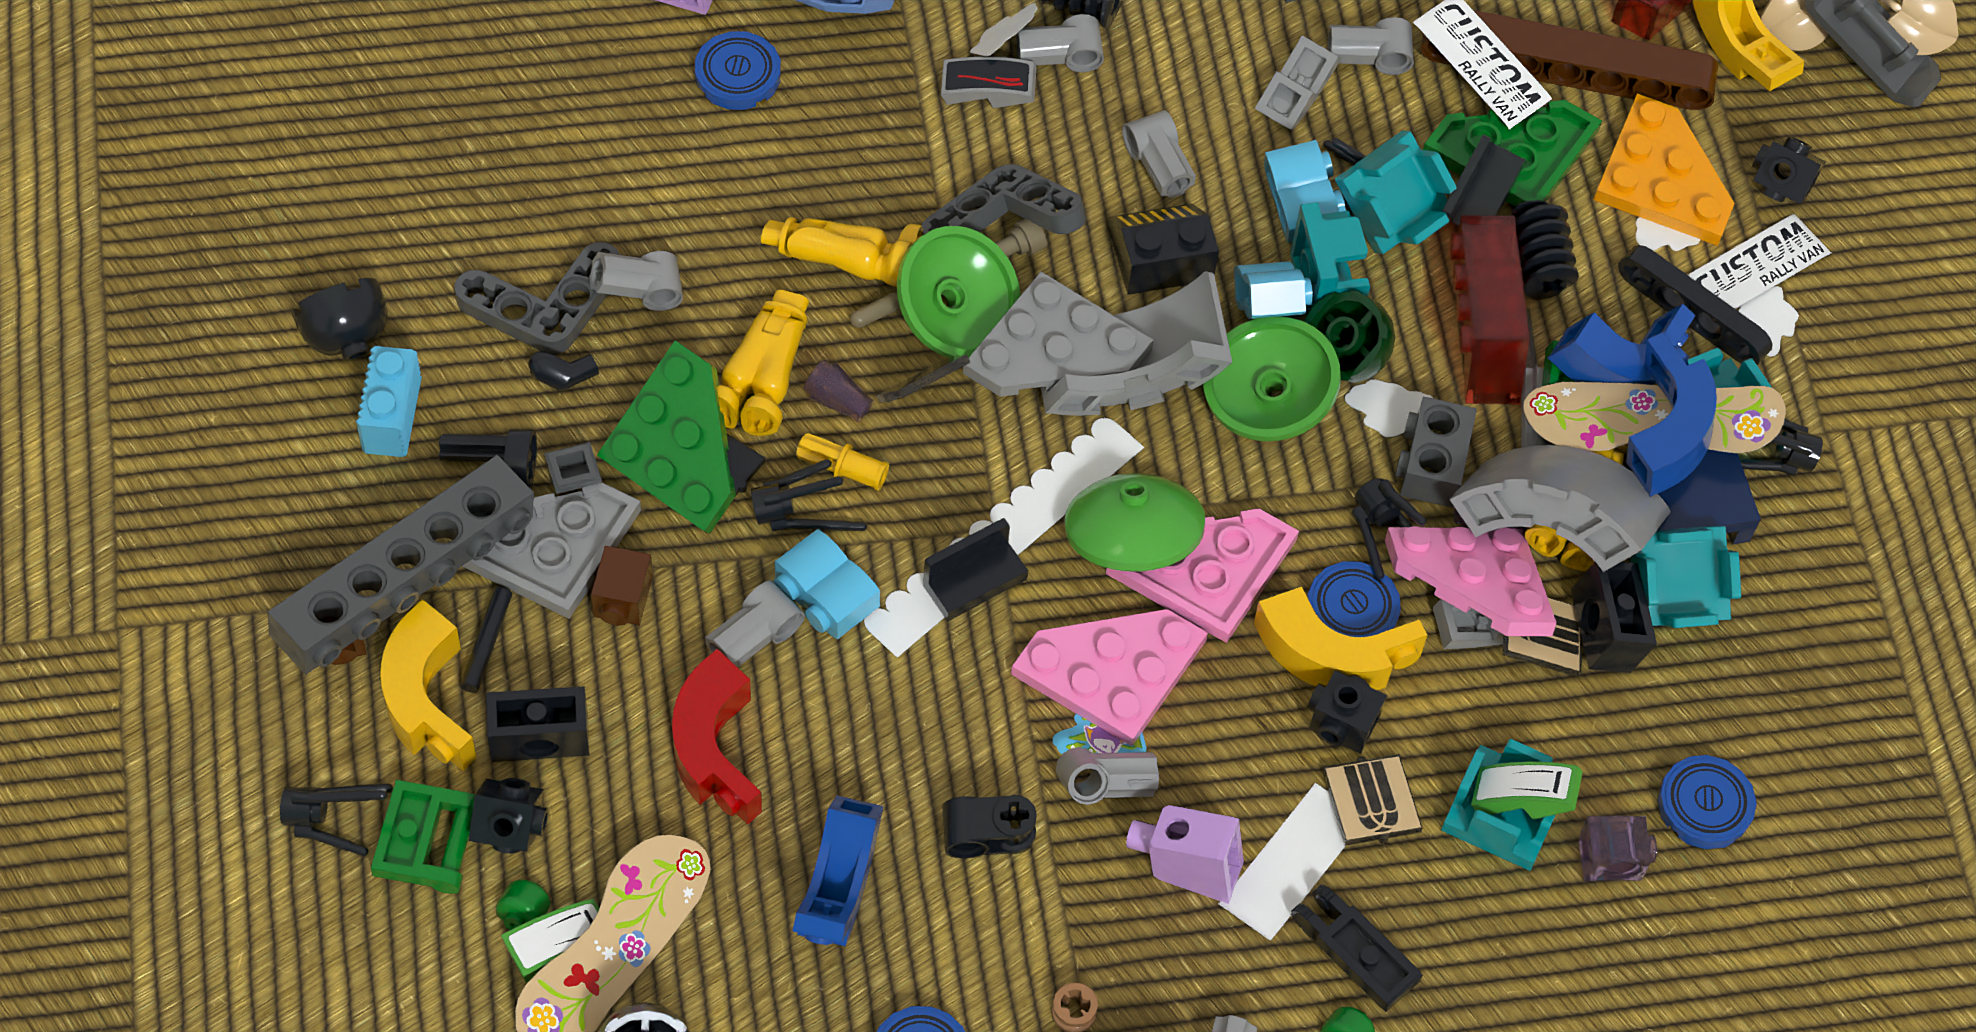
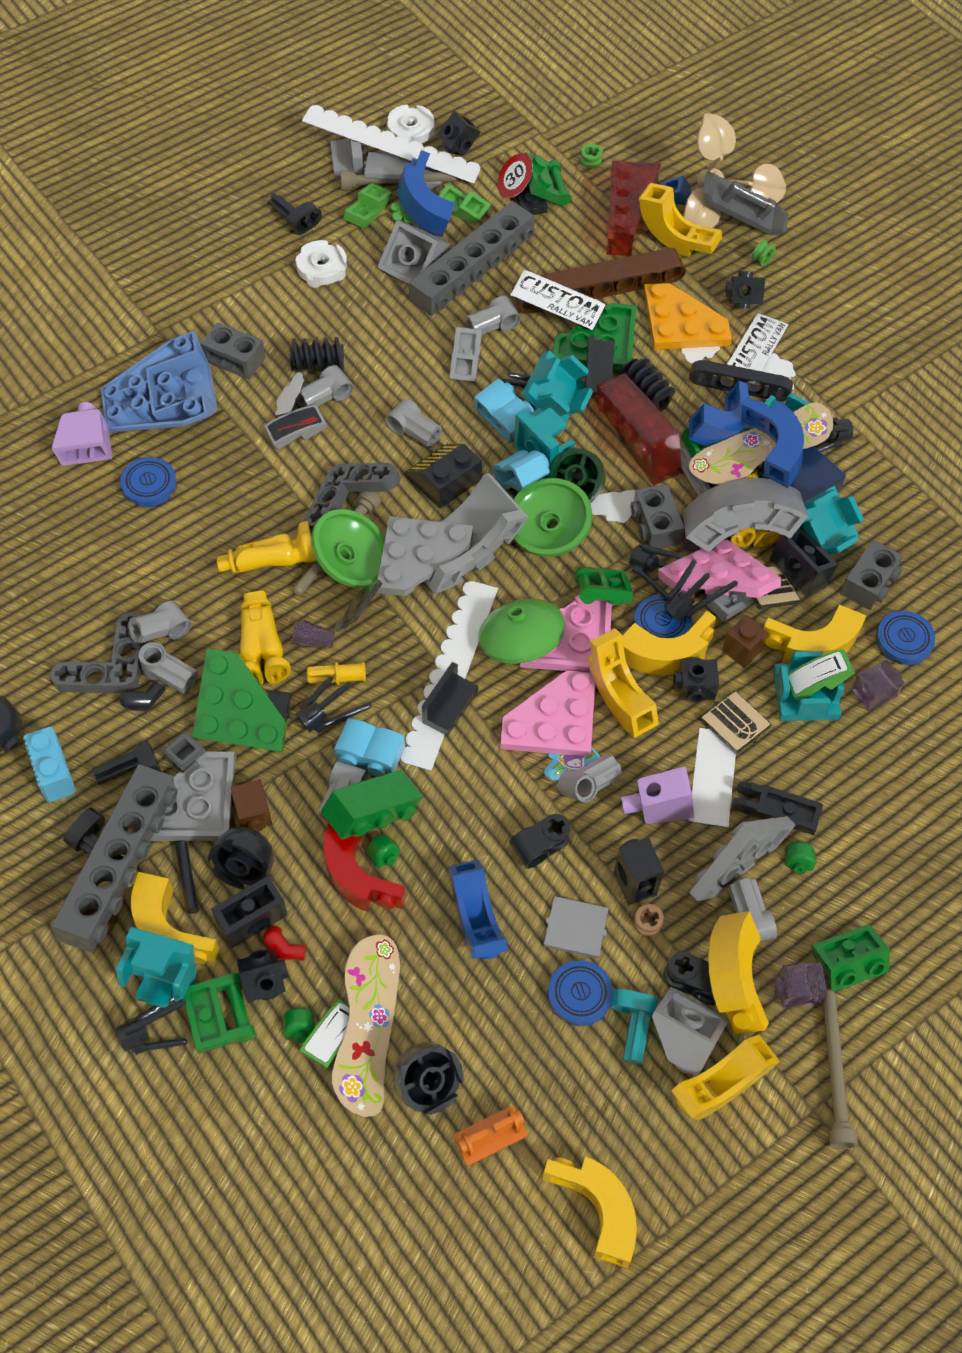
camera: 25 degrees left, 0 degrees up
(386, 509) = (83, 831): none -> black piece
(389, 734) = (162, 961): none -> teal panel
(553, 779) = (275, 940): none -> red arm
(569, 645) = (241, 857): none -> black cylinder
(614, 345) = (167, 669): none -> light grey piece
(766, 733) = (382, 851): none -> green piece
(778, 660) = (371, 804): none -> green brick
(969, 967) = (576, 927): none -> light grey piece
(1092, 931) = (638, 870): none -> black brick
(1225, 664) = (617, 686): none -> yellow arch
(1254, 978) = (733, 860): none -> light grey plate
(1302, 522) = (612, 585): none -> green plate
(1390, 587) = (681, 602): none -> black plant
(1453, 691) = (744, 641): none -> reddish brown brick
(1599, 749) = (837, 635): none -> yellow arch
(1705, 678) = (869, 573): none -> dark grey brick
(1857, 124) = (763, 253): none -> bright green bush

